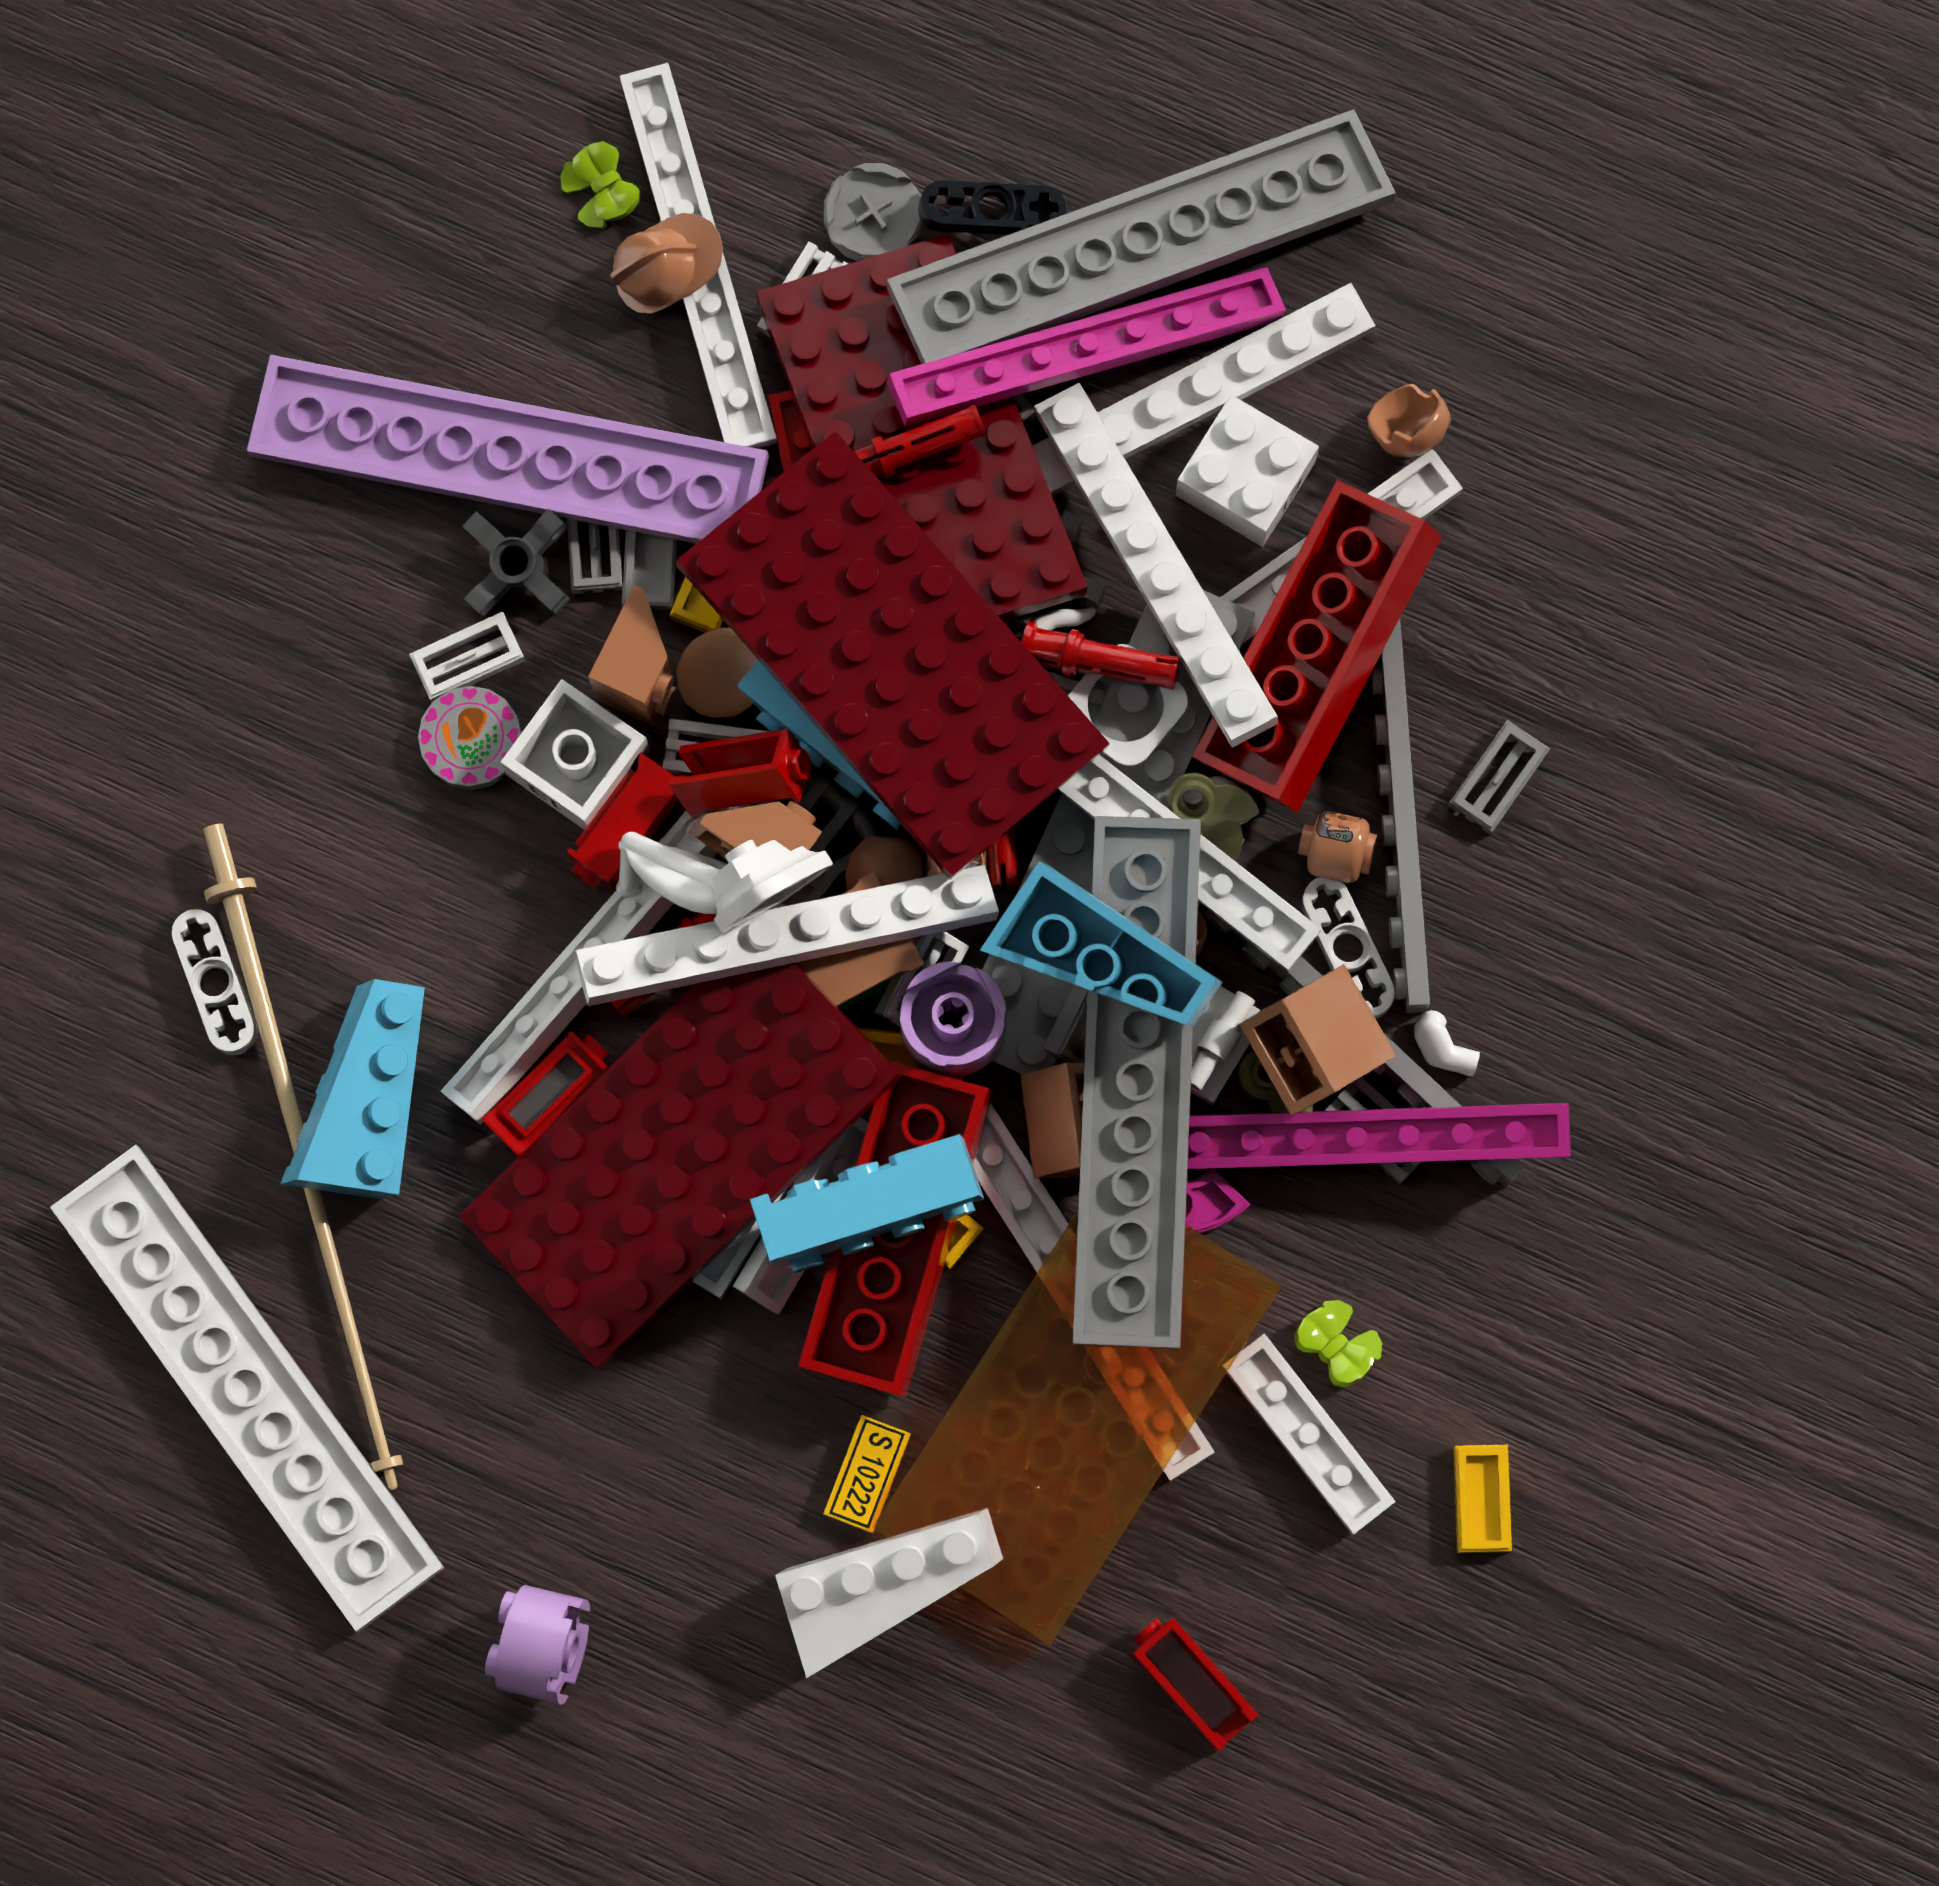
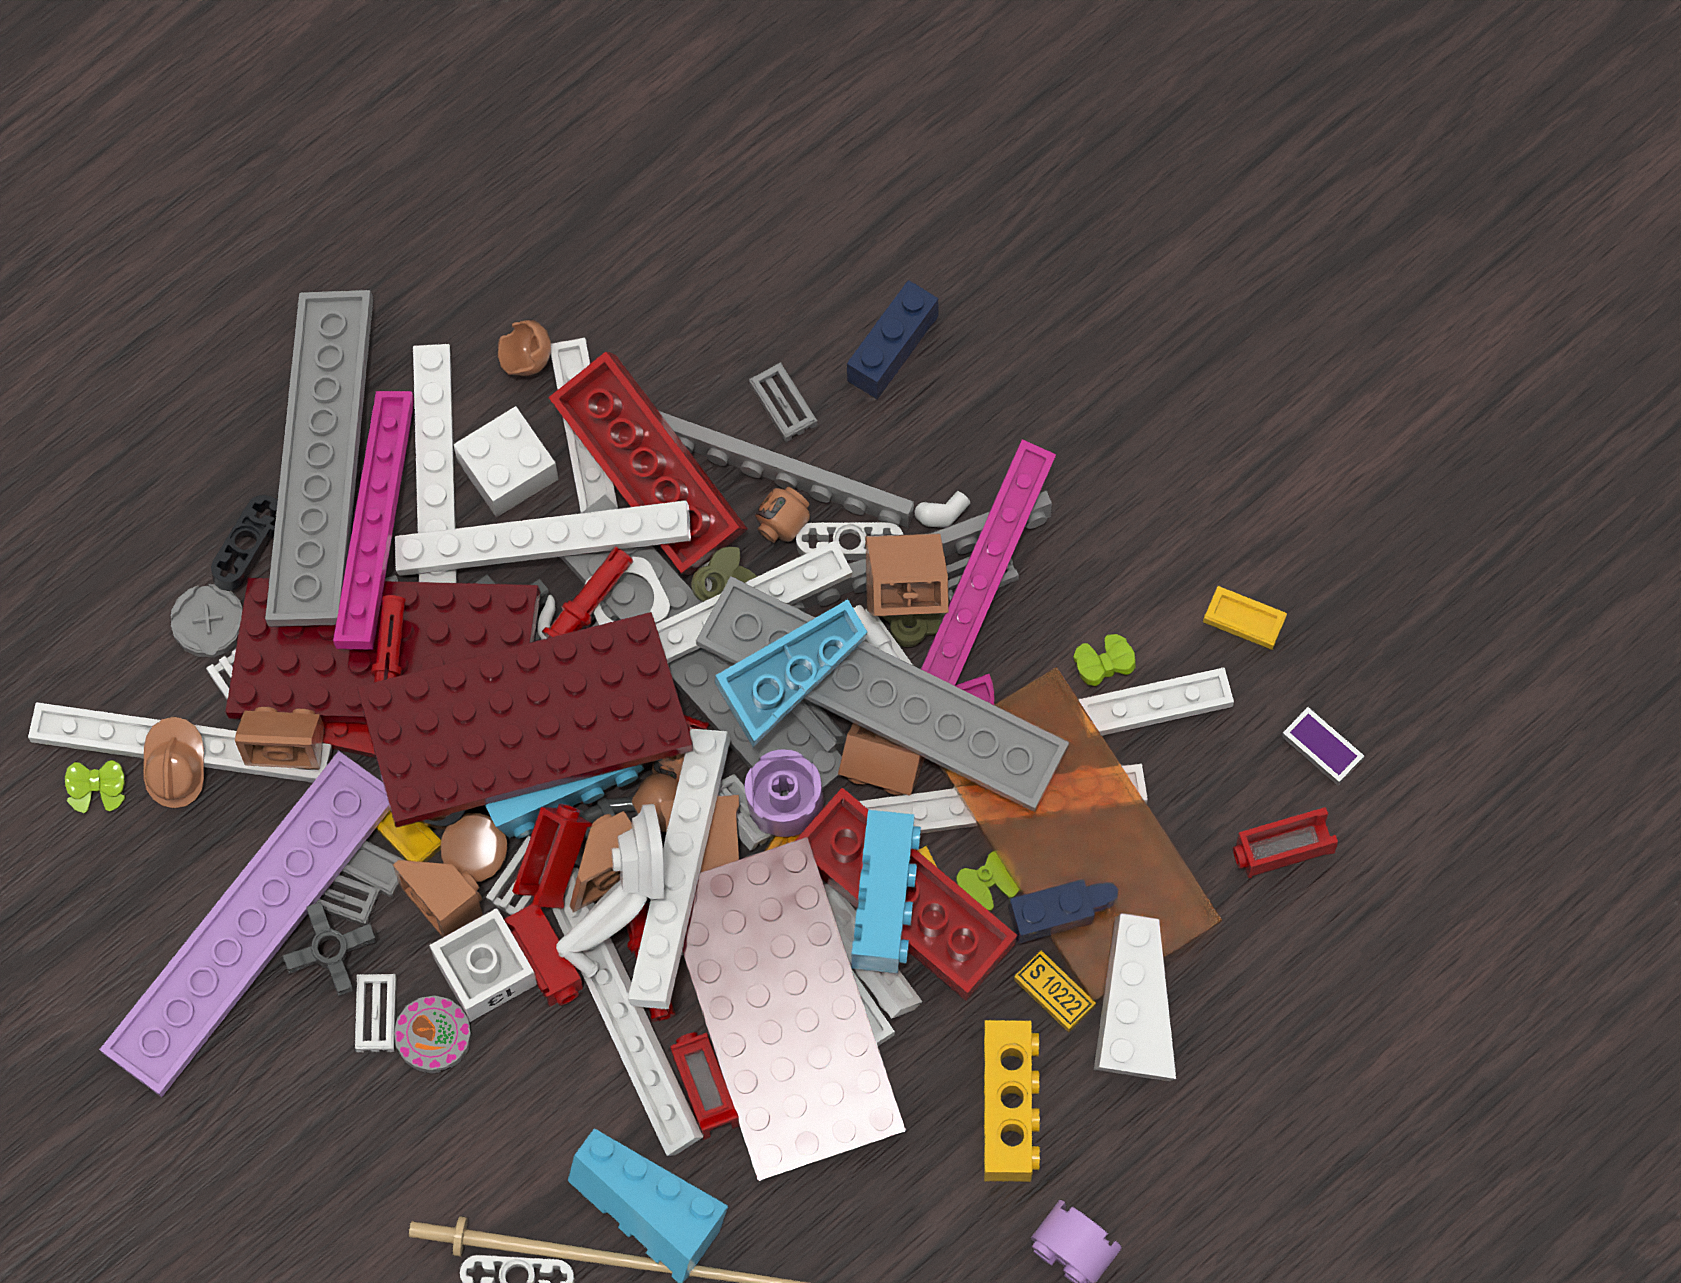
camera: 65 degrees left, 10 degrees down
(614, 1499) = (1001, 1160): none -> yellow brick
(746, 371) = (280, 738): none -> nougat slope
(959, 1433) = (1059, 908): none -> dark blue hinge
(960, 1312) = (979, 881): none -> lime piece
(1351, 1675) = (1323, 746): none -> tile
(1647, 876) = (892, 339): none -> dark blue brick

